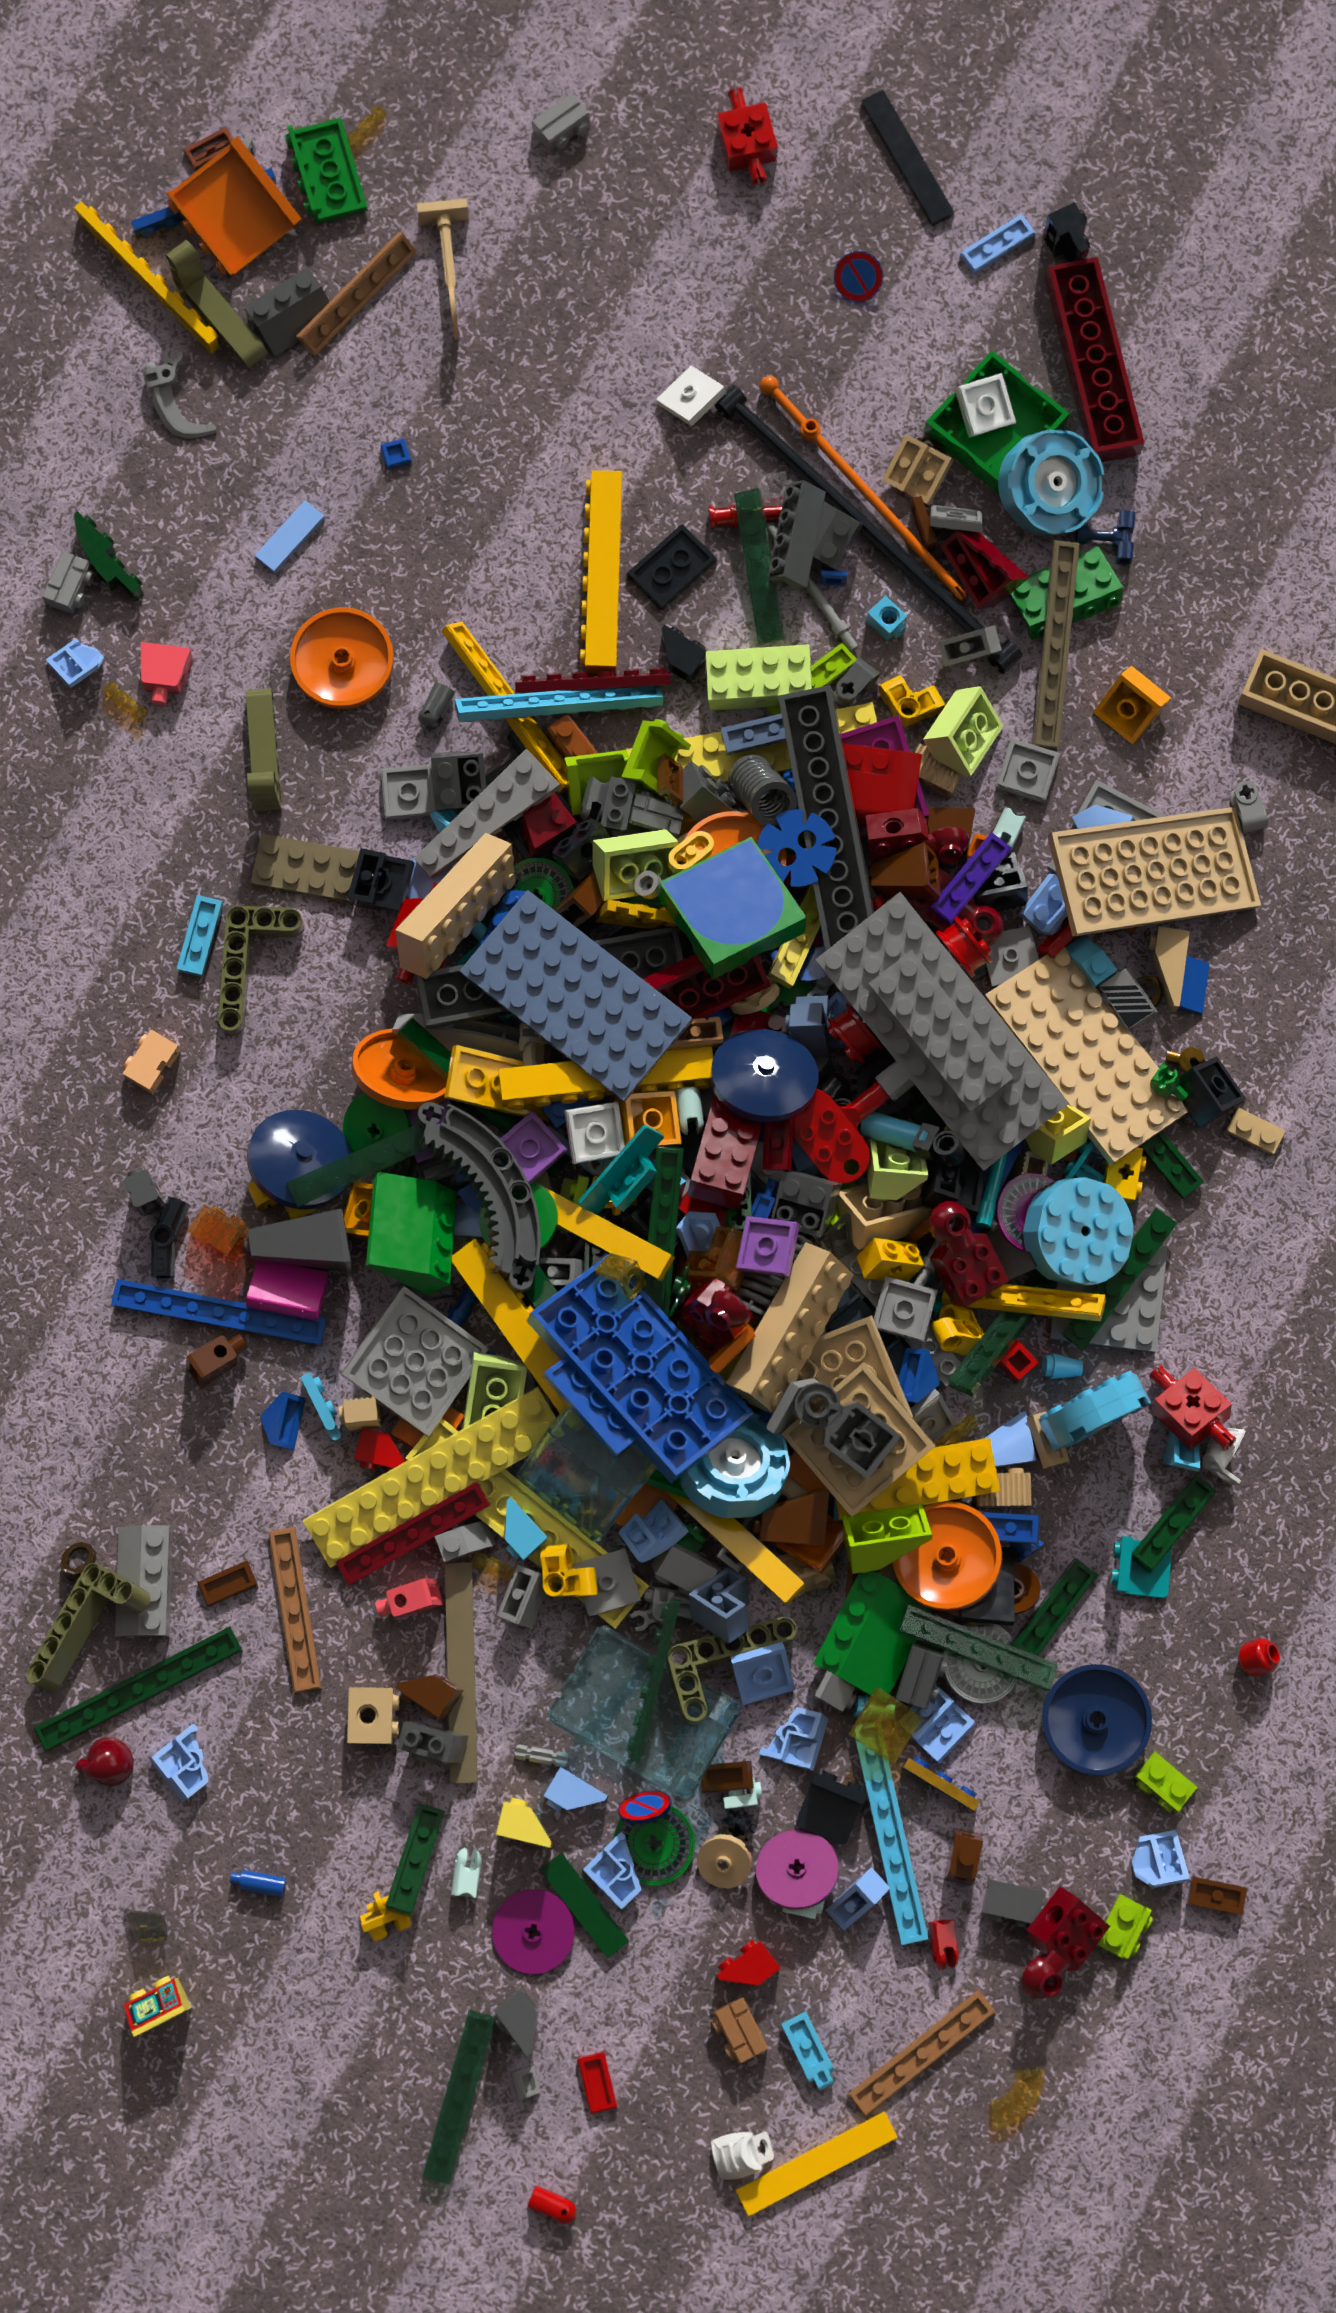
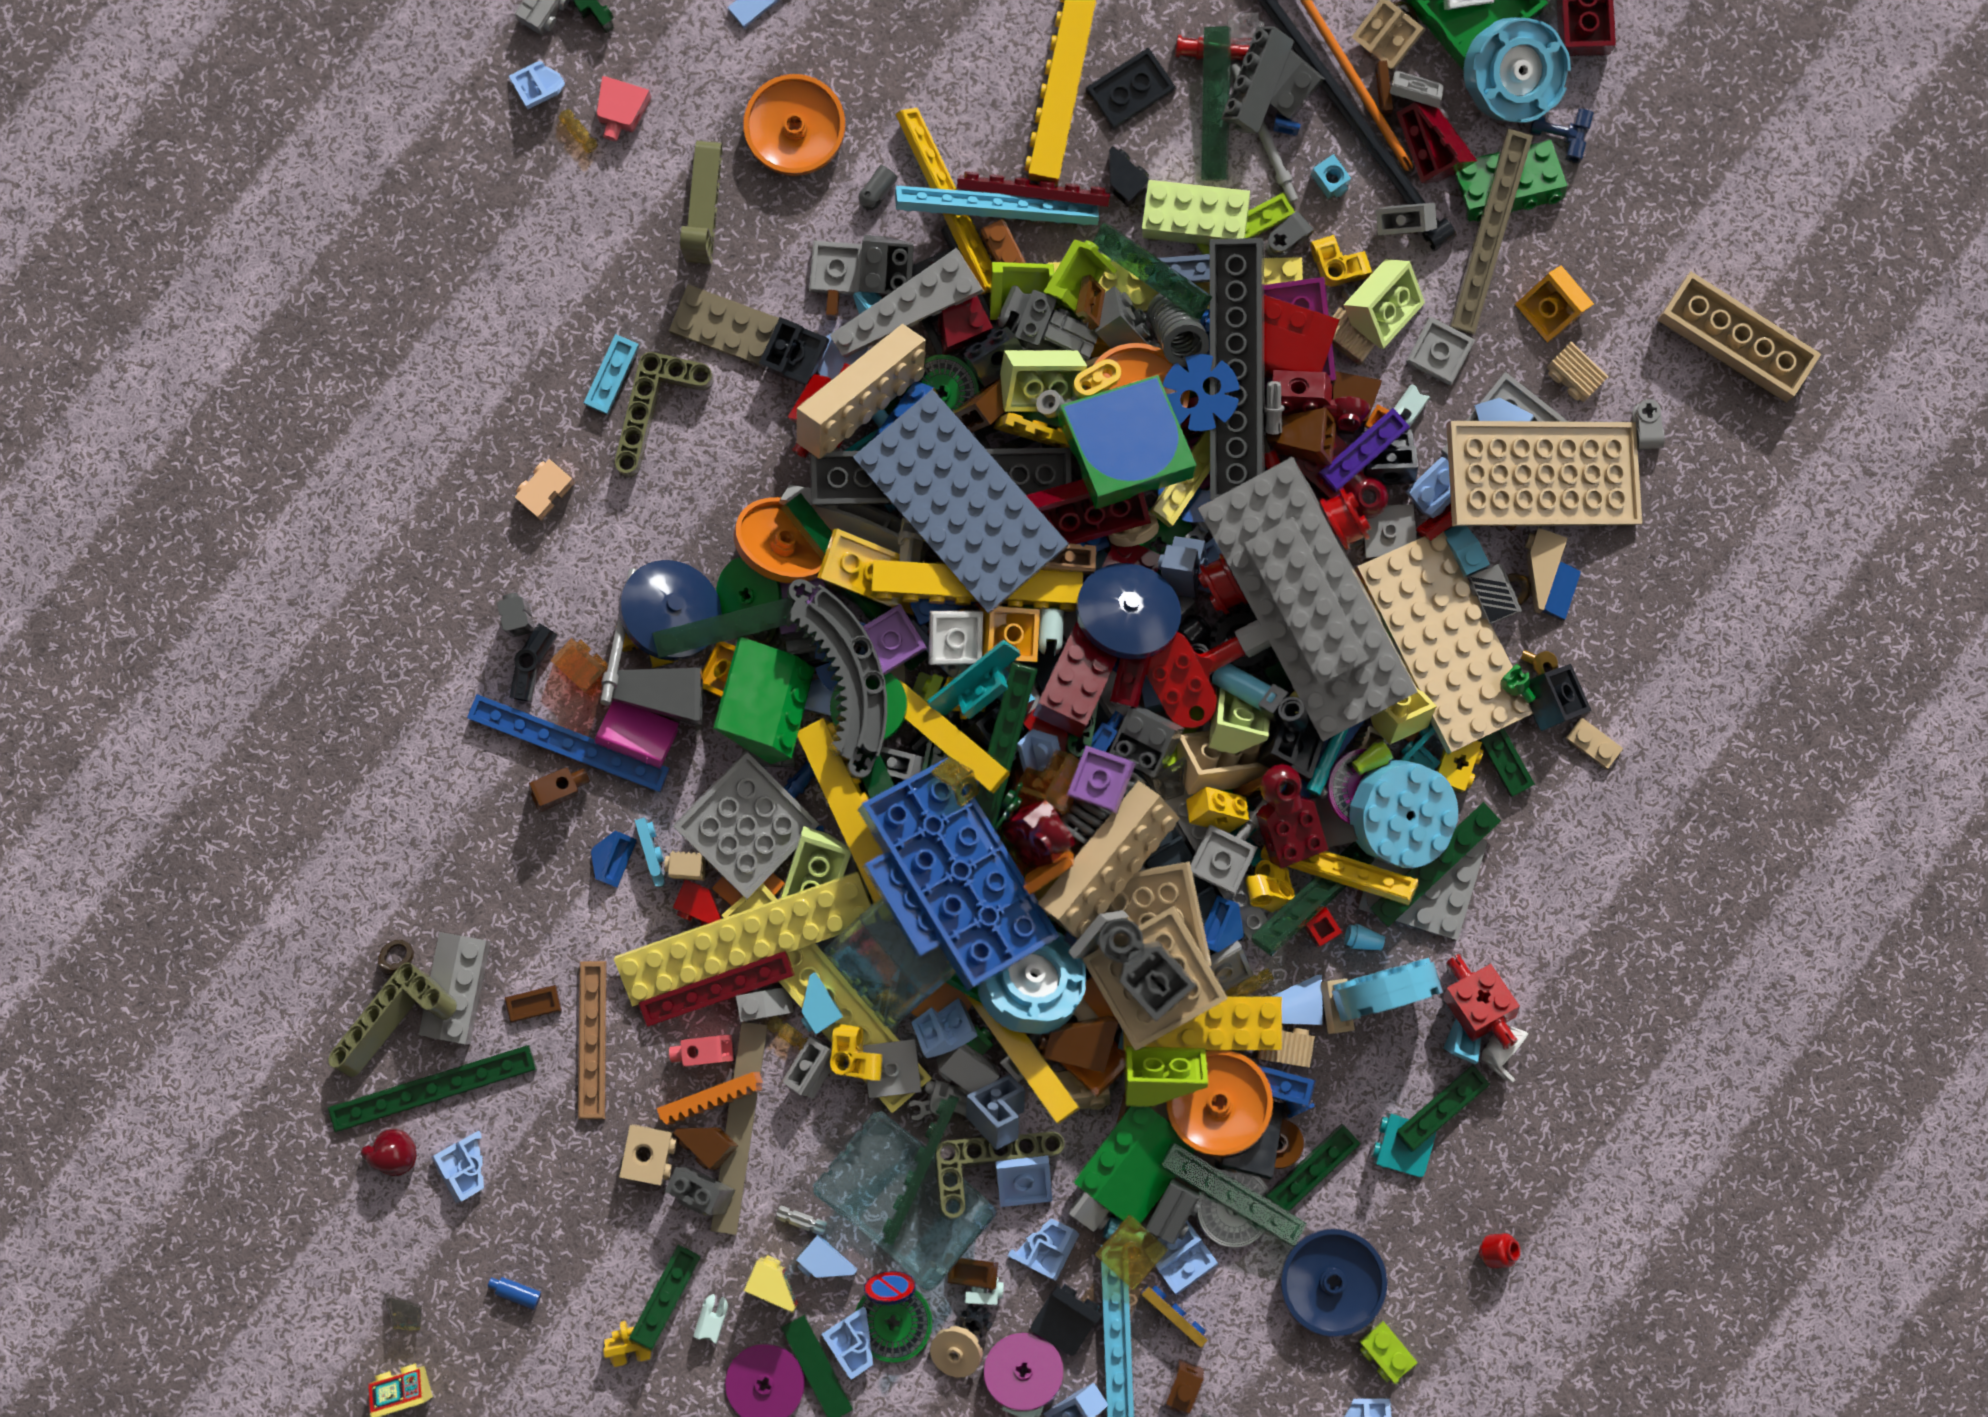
camera: 10 degrees right, 5 degrees up
(252, 1235) = (610, 678): none -> light grey bar
(411, 829) = (832, 305): none -> reddish brown tile
(425, 1645) = (710, 1097): none -> orange gear
(727, 739) = (1152, 271): none -> clear green plate
(872, 851) = (1273, 408): none -> light grey axle
(1036, 1181) = (1372, 758): none -> lime cone
(1167, 768) = (1576, 372): none -> tan brick

